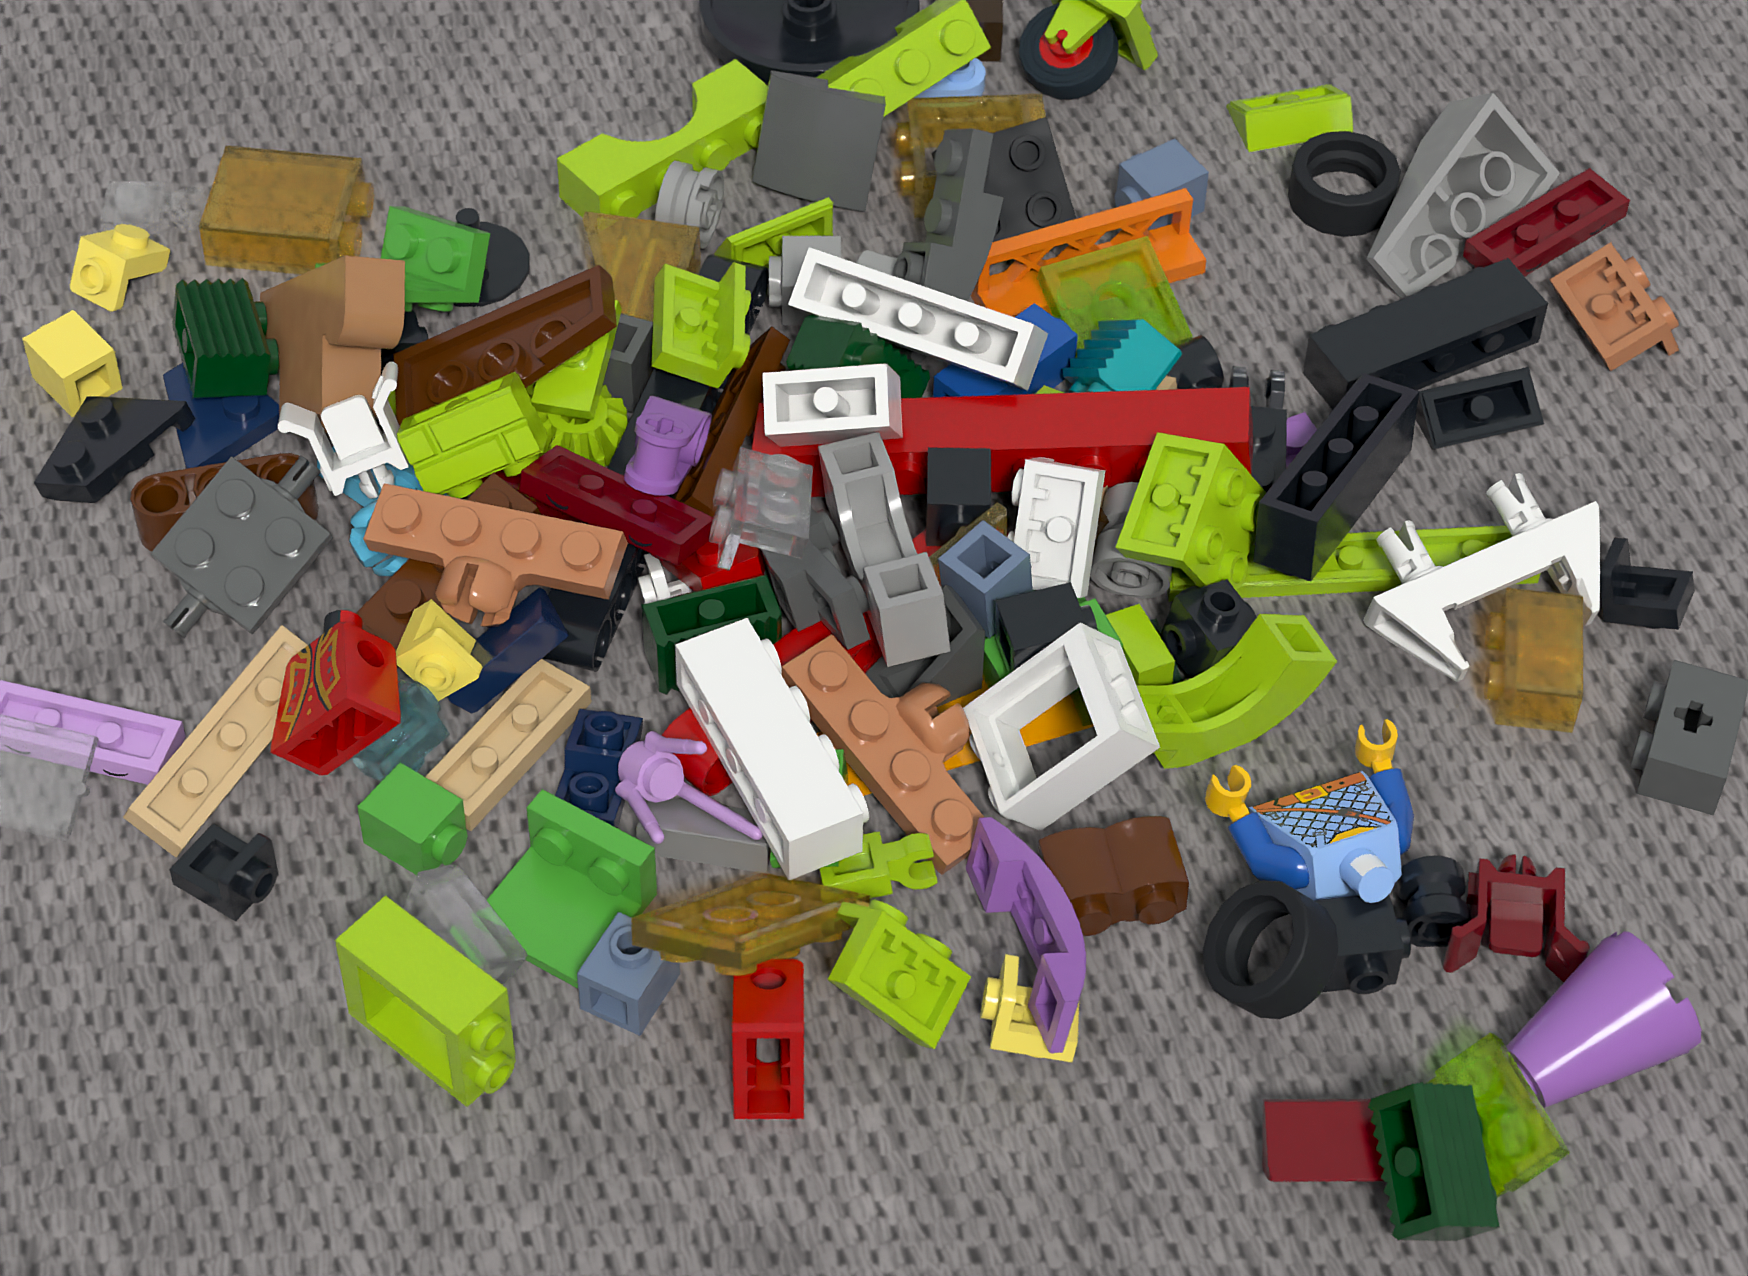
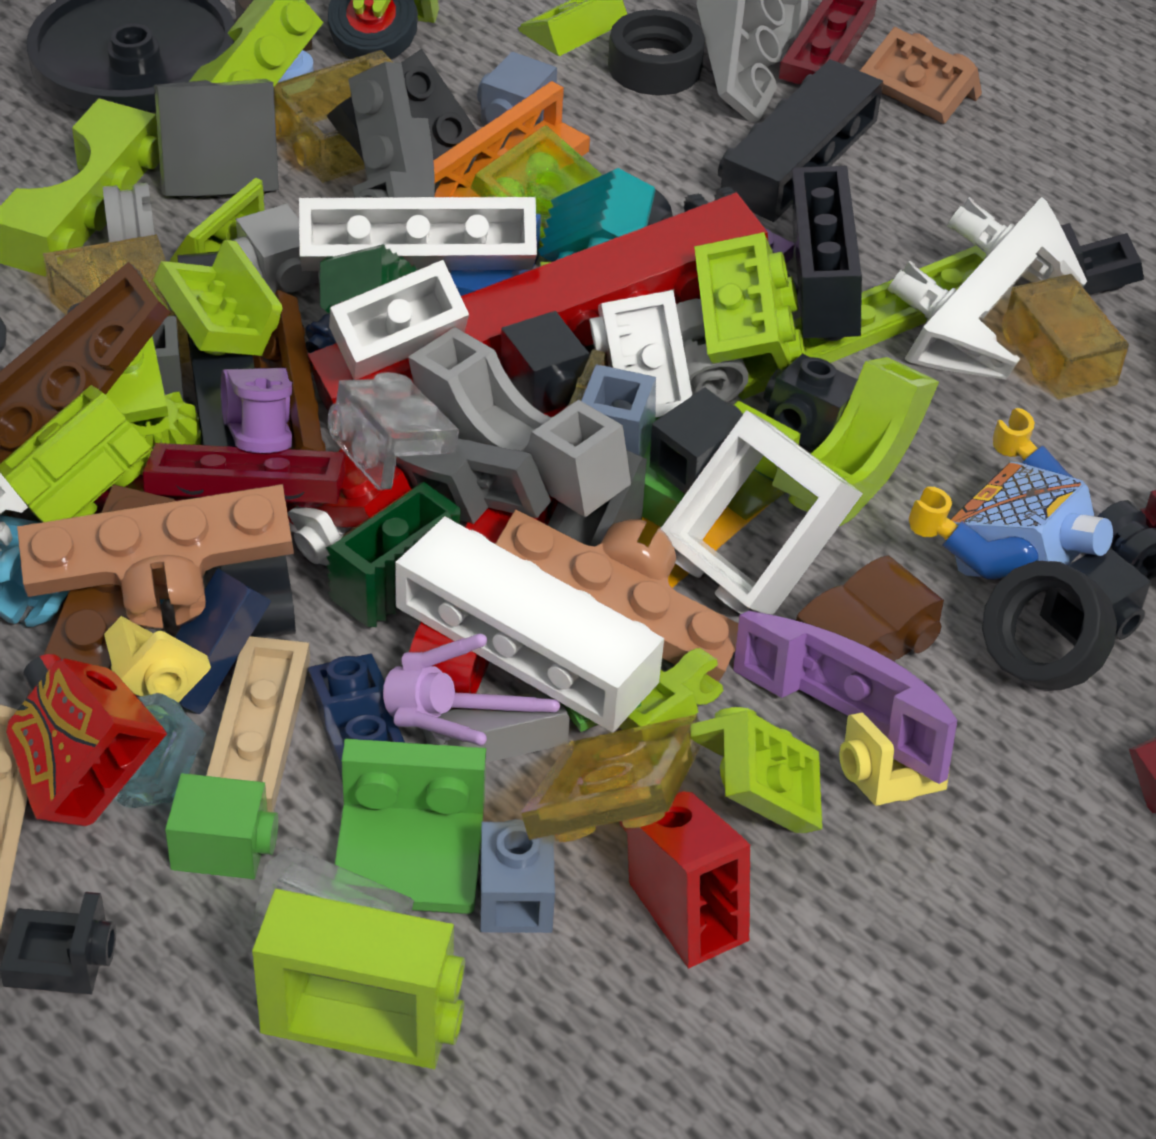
camera: 30 degrees left, 5 degrees down
(1478, 408) = (881, 175): black slope -> none

